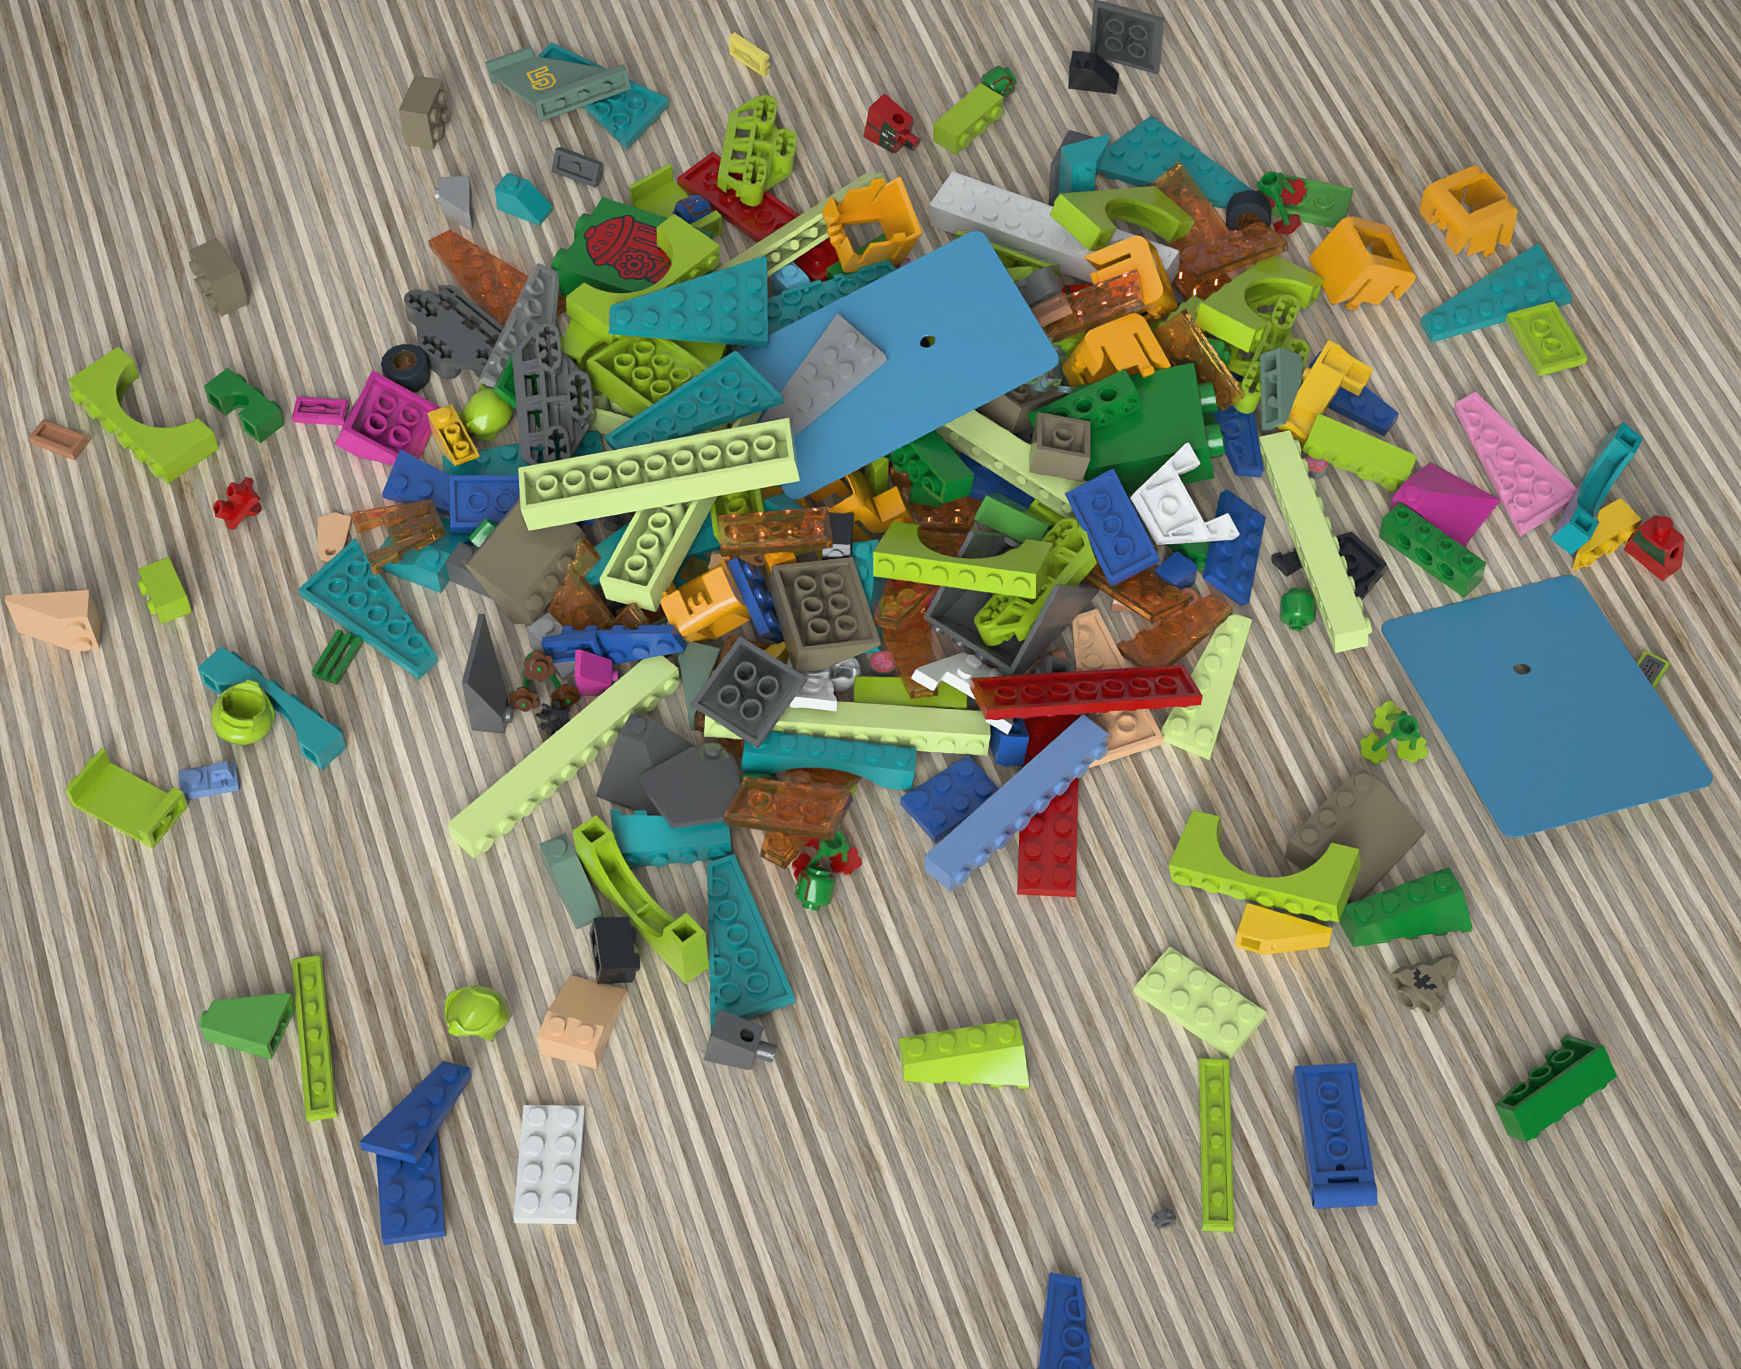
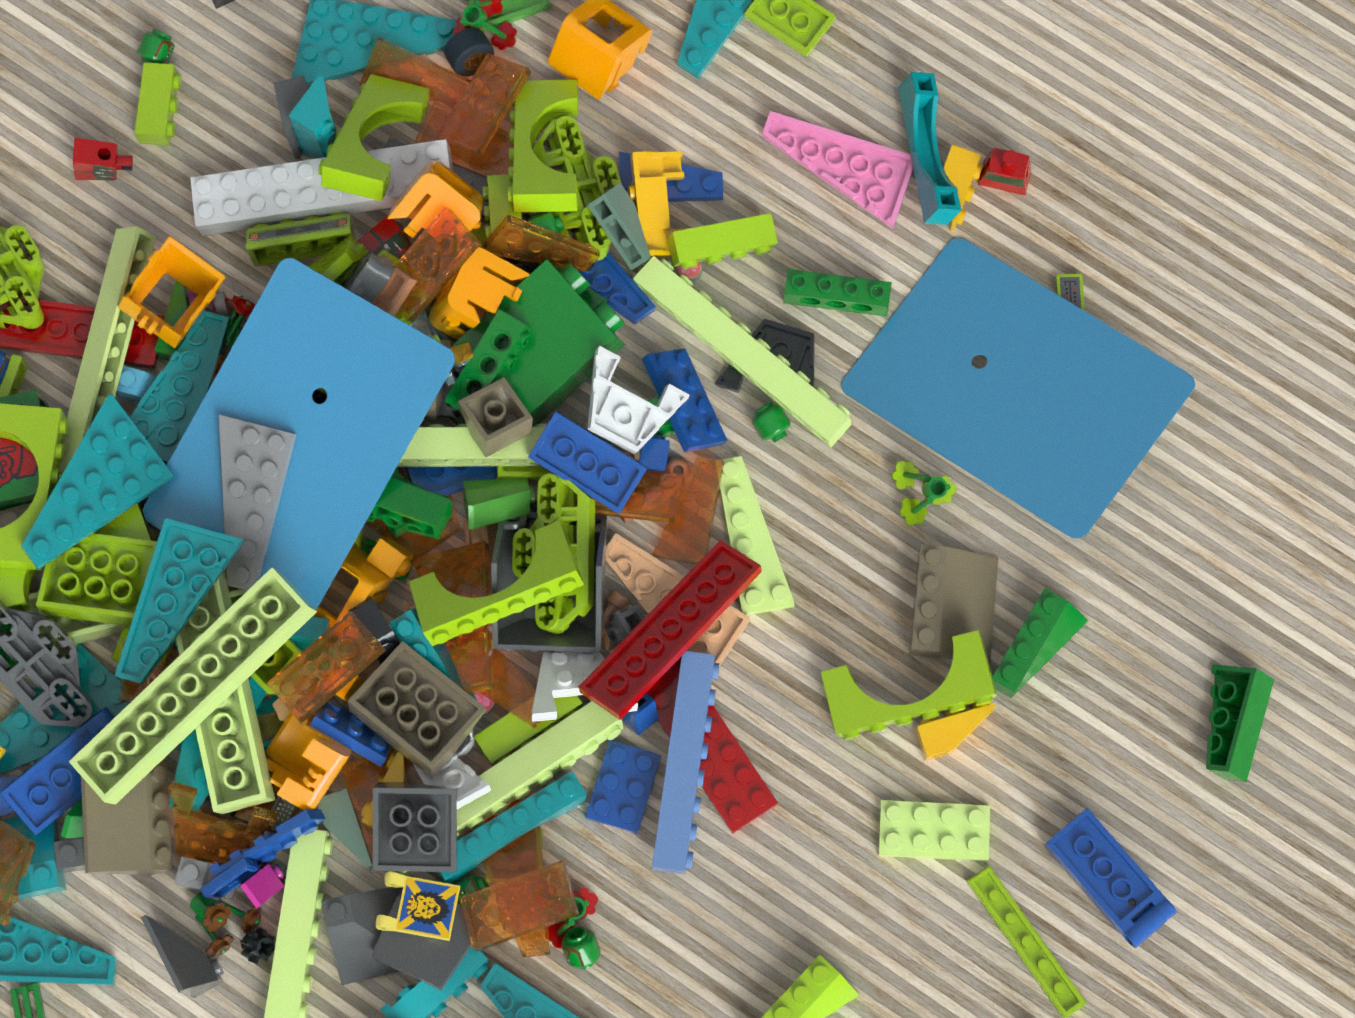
camera: 35 degrees left, 20 degrees up
(707, 762) = (424, 908): none -> flag
(1425, 983) = (1087, 694): dark tan rock -> none
(1446, 502) = (816, 238): dark pink slope -> none

